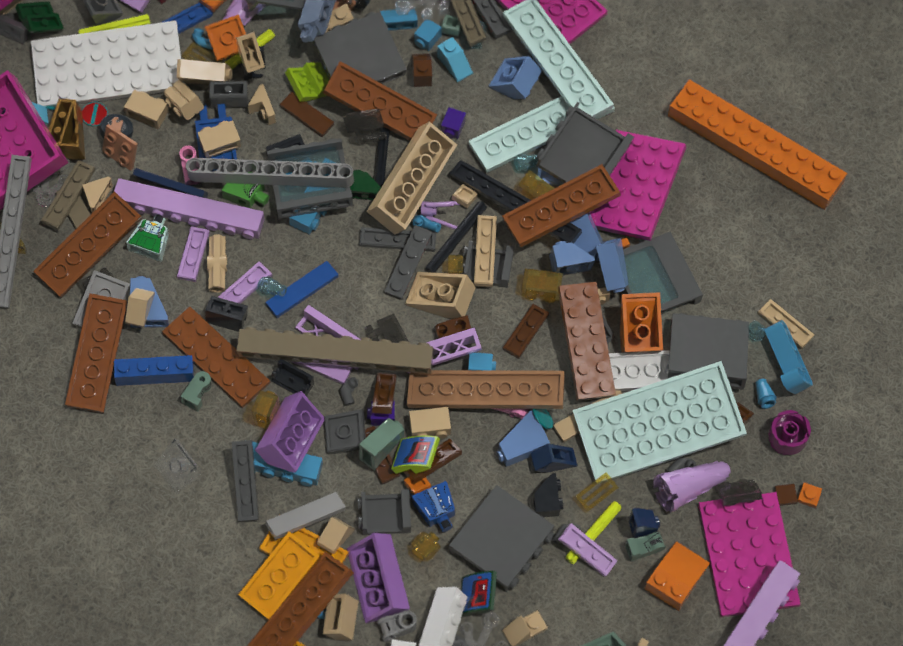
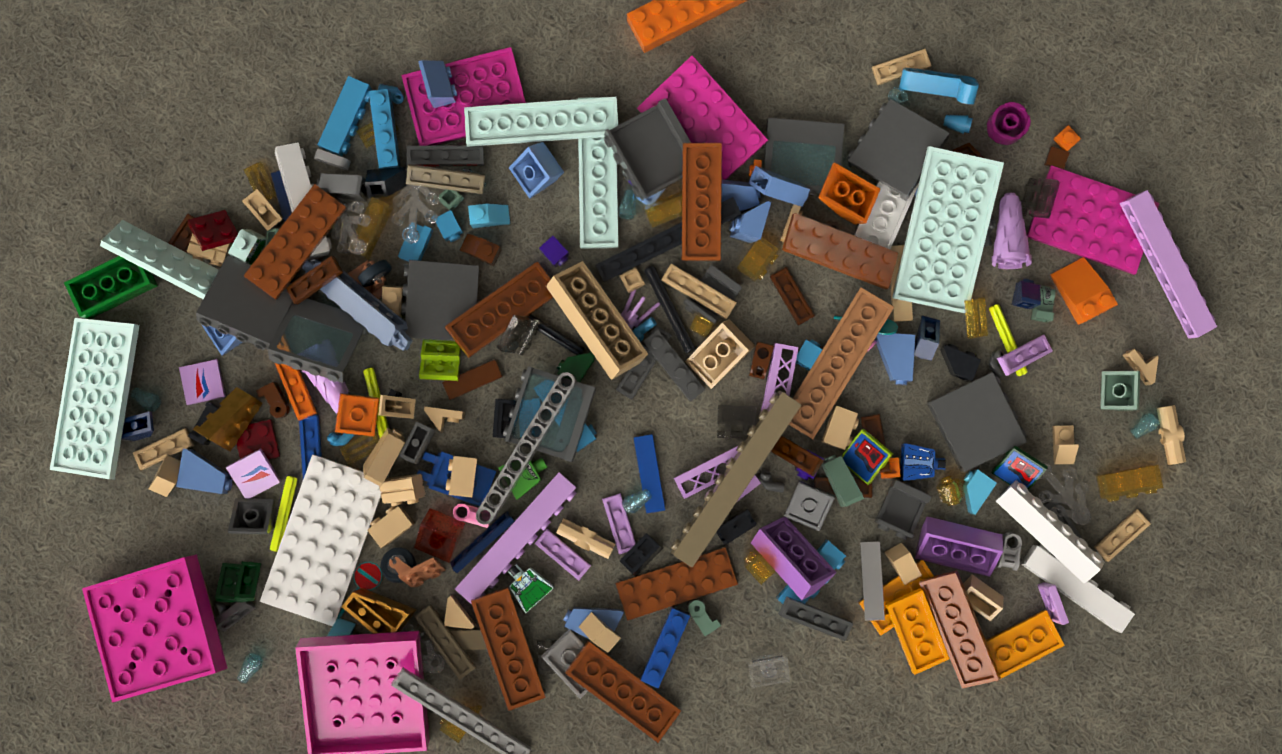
camera: 60 degrees left, 20 degrees up
(158, 148) = (439, 535): none -> clear red slope
(438, 568) = (977, 489): none -> medium azure slope

